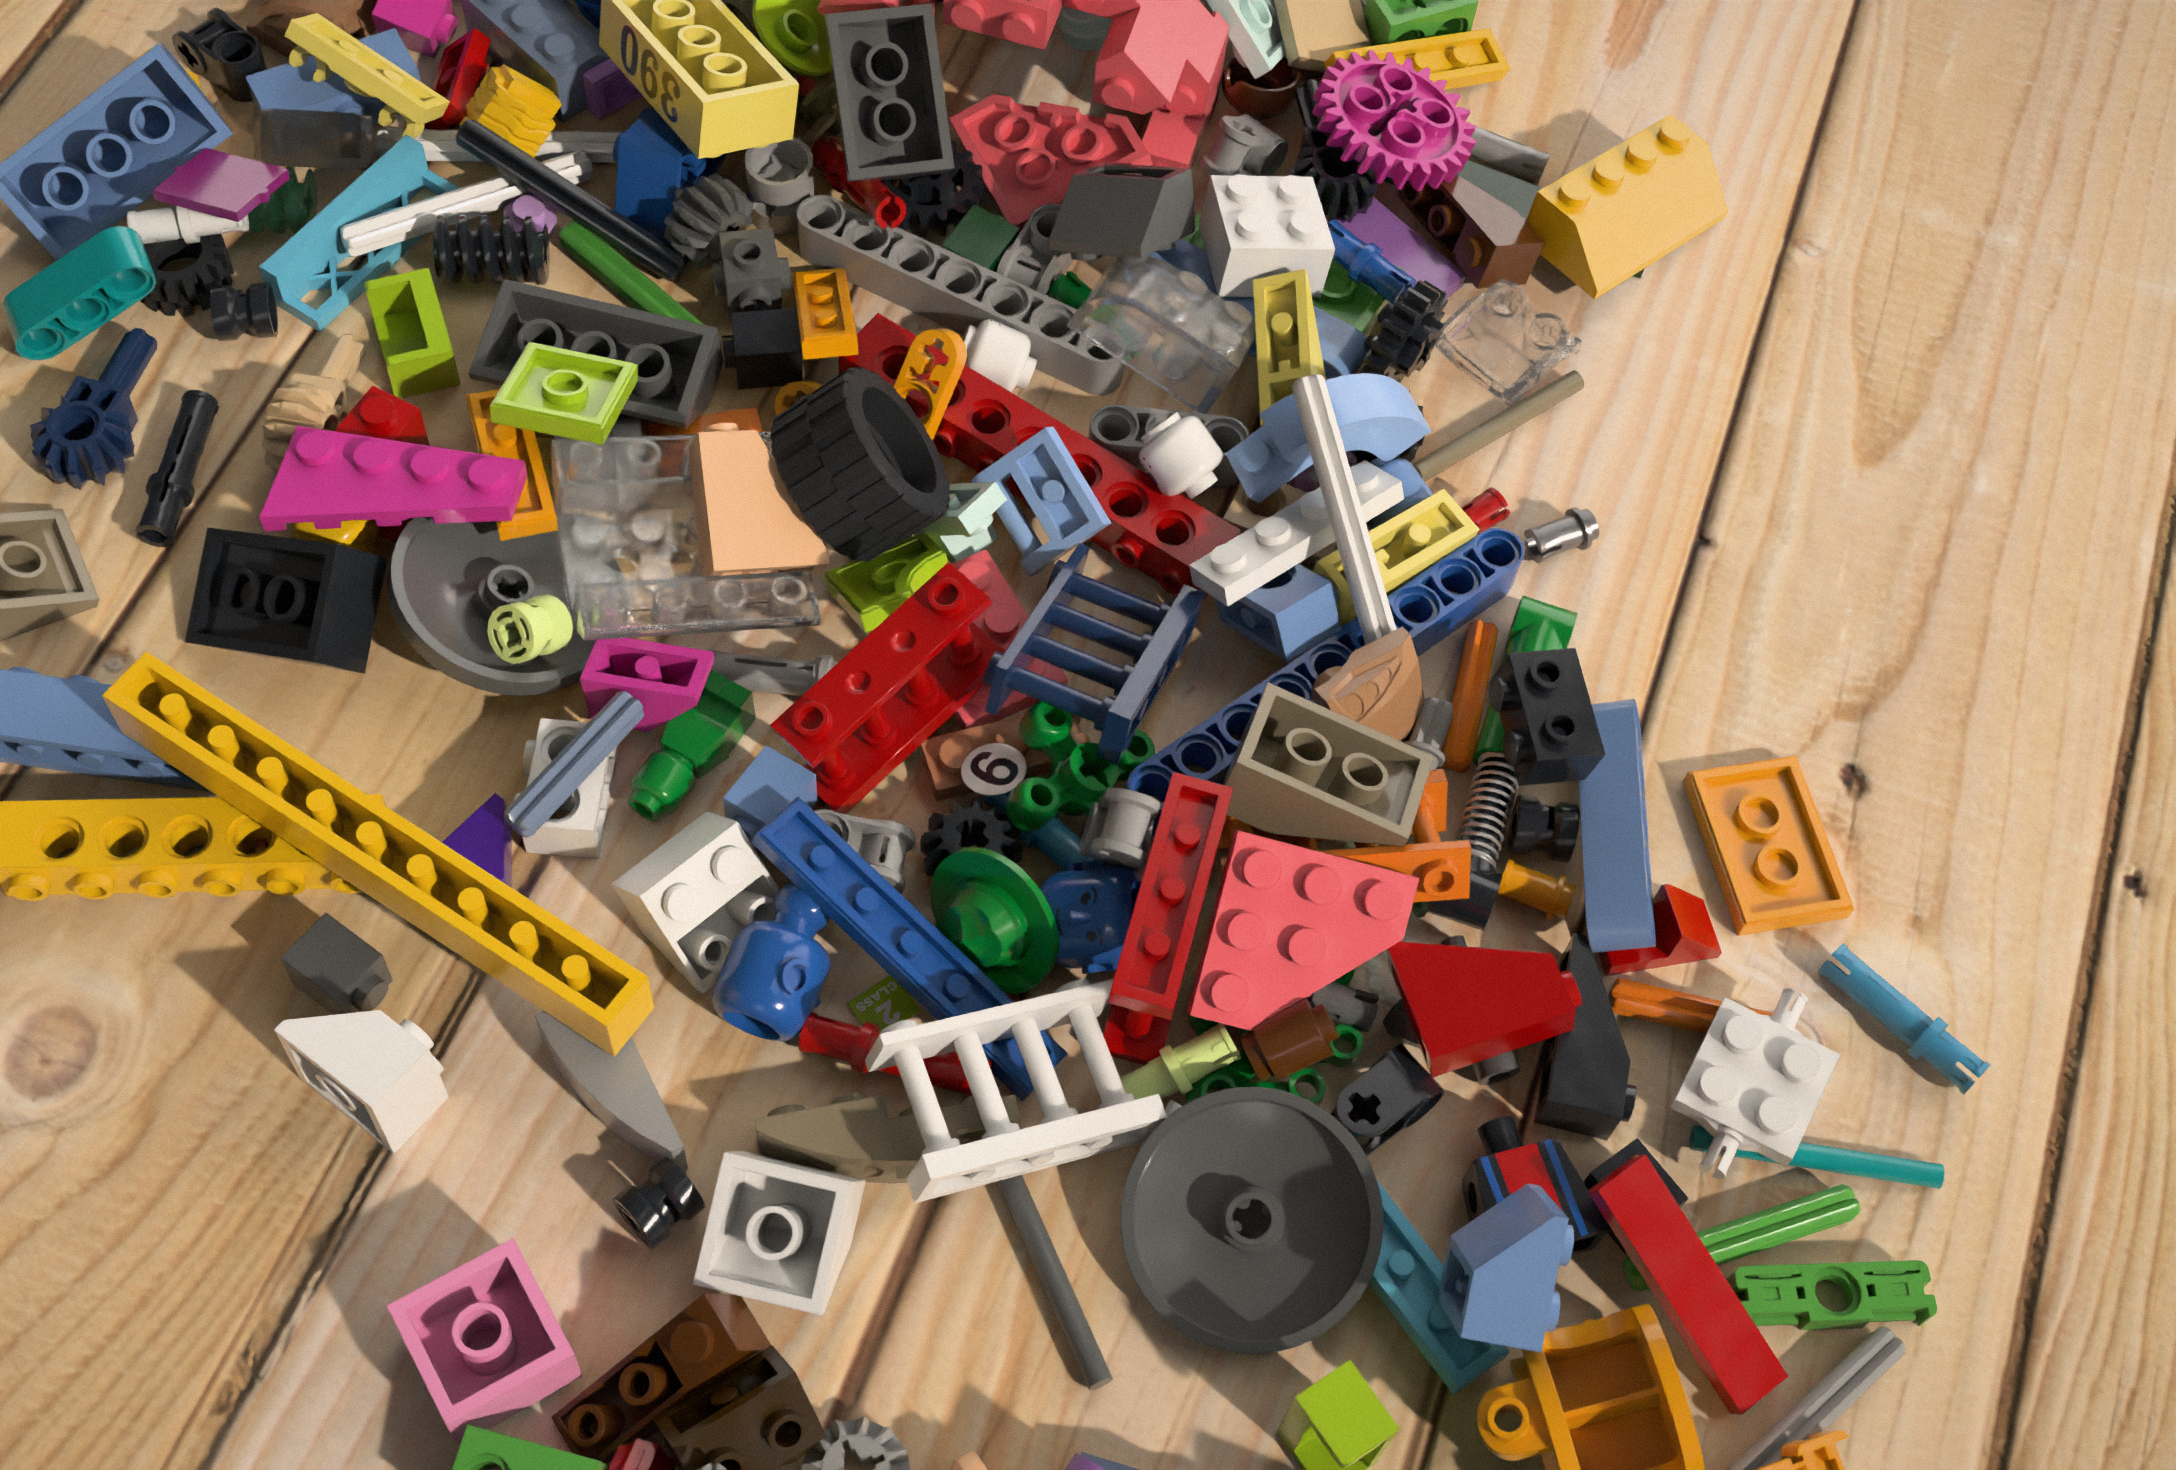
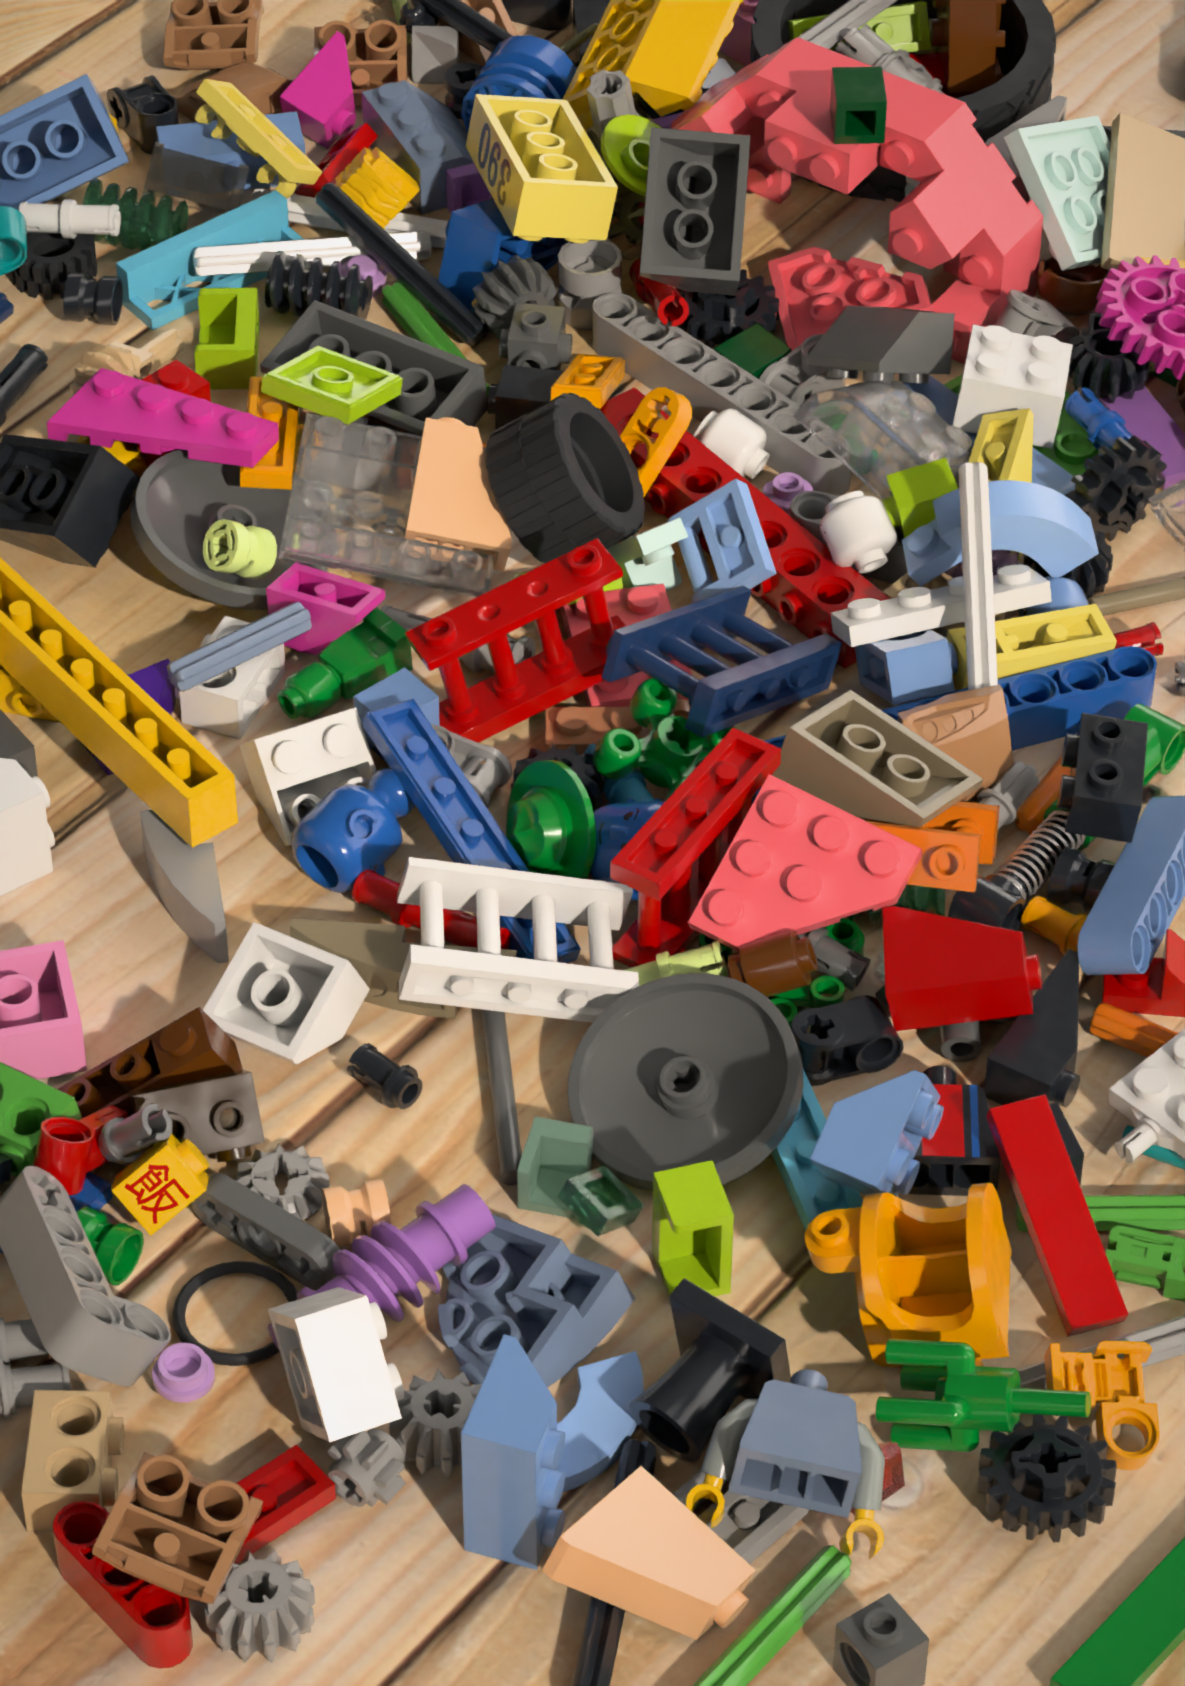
camera: 25 degrees right, 15 degrees down
(221, 184) = (105, 193): magenta piece -> none
(659, 1203) = (191, 966): black wheel -> none
(920, 1290) = (395, 1083): none -> black pin
(993, 769) = (589, 730): white sticker -> none
(1074, 413) = (785, 488): none -> lavender plate
(1120, 828) = (674, 763): light grey piece -> none
(1146, 1365) = (550, 1157): none -> sand green panel
(1212, 1397) = (600, 1201): none -> clear green plate
(1233, 400) = (913, 493): none -> lime brick

